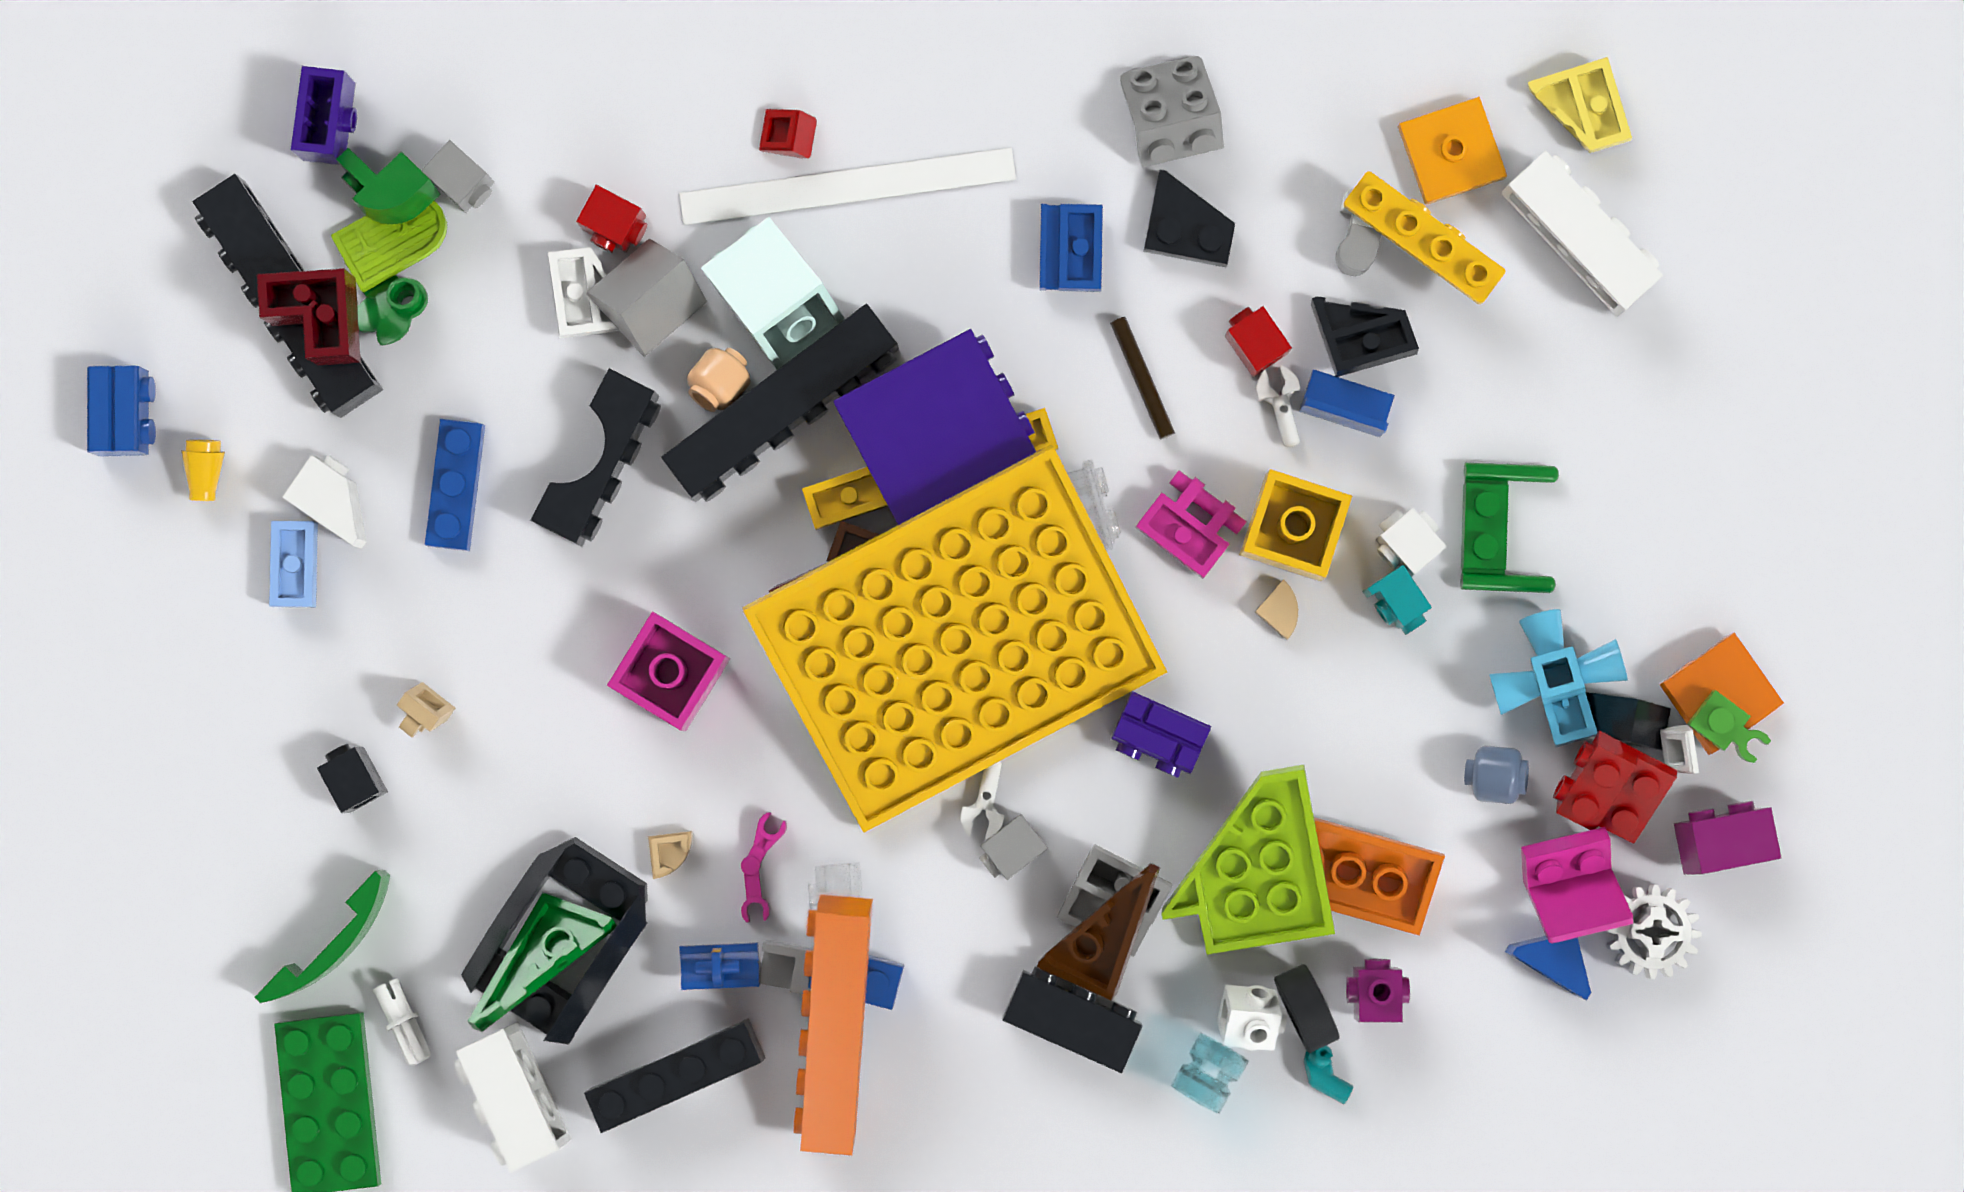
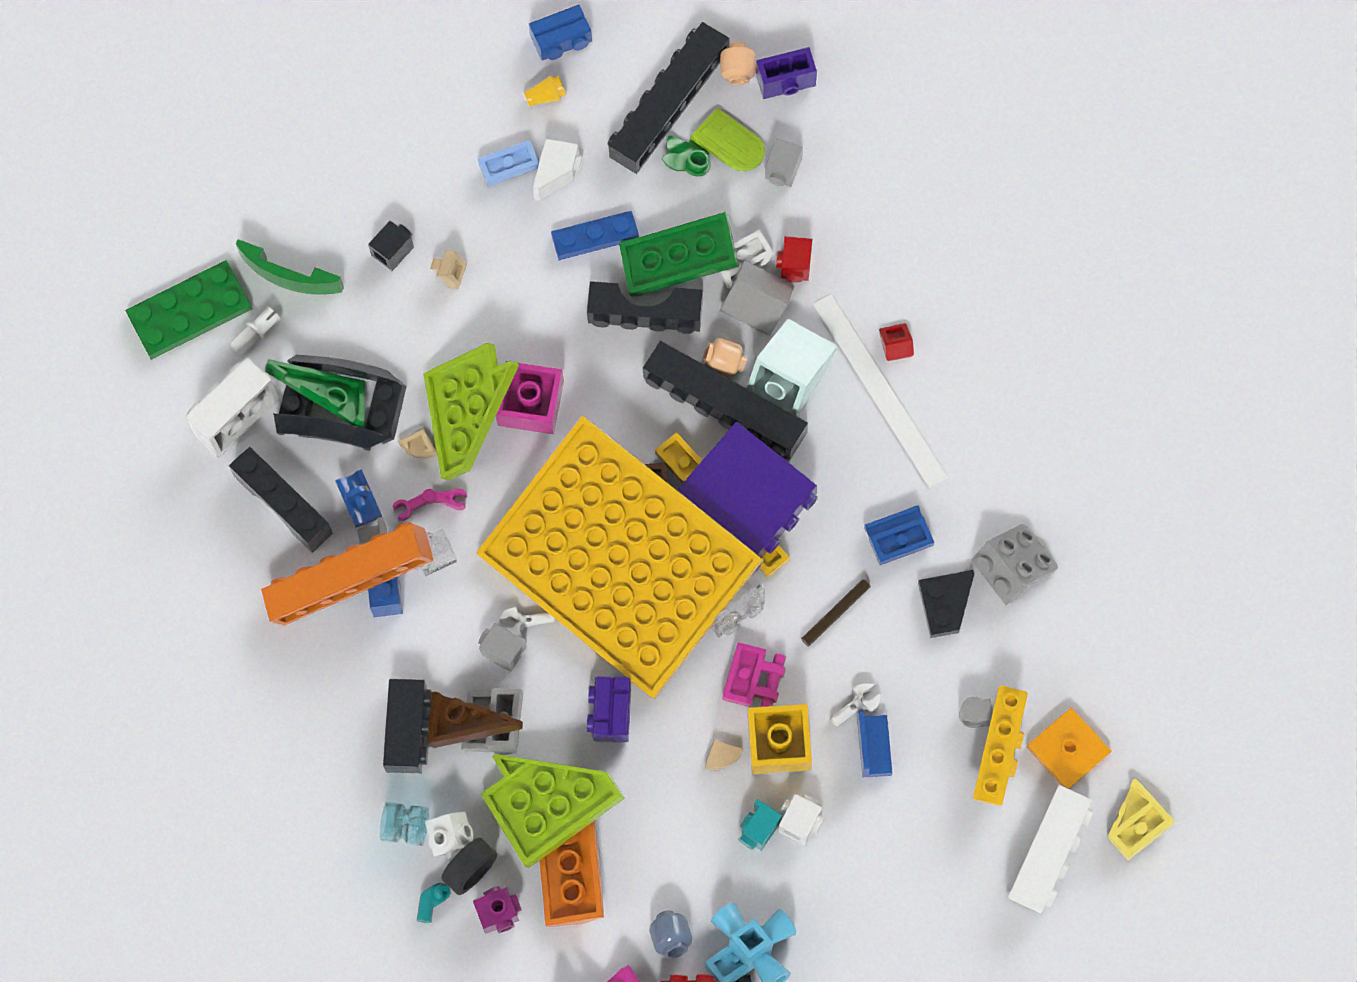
camera: 65 degrees right, 15 degrees down
(278, 178) = (738, 63): none -> light nougat head
(320, 301) = (669, 111): dark red brick -> none
(393, 194) = (756, 129): green brick -> none
(540, 379) = (678, 254): none -> green plate
(644, 767) = (463, 405): none -> lime wing
(1257, 340) = (889, 671): red brick -> none
(1363, 335) = (922, 737): black wing -> none
(1487, 523) = (832, 867): green plate -> none

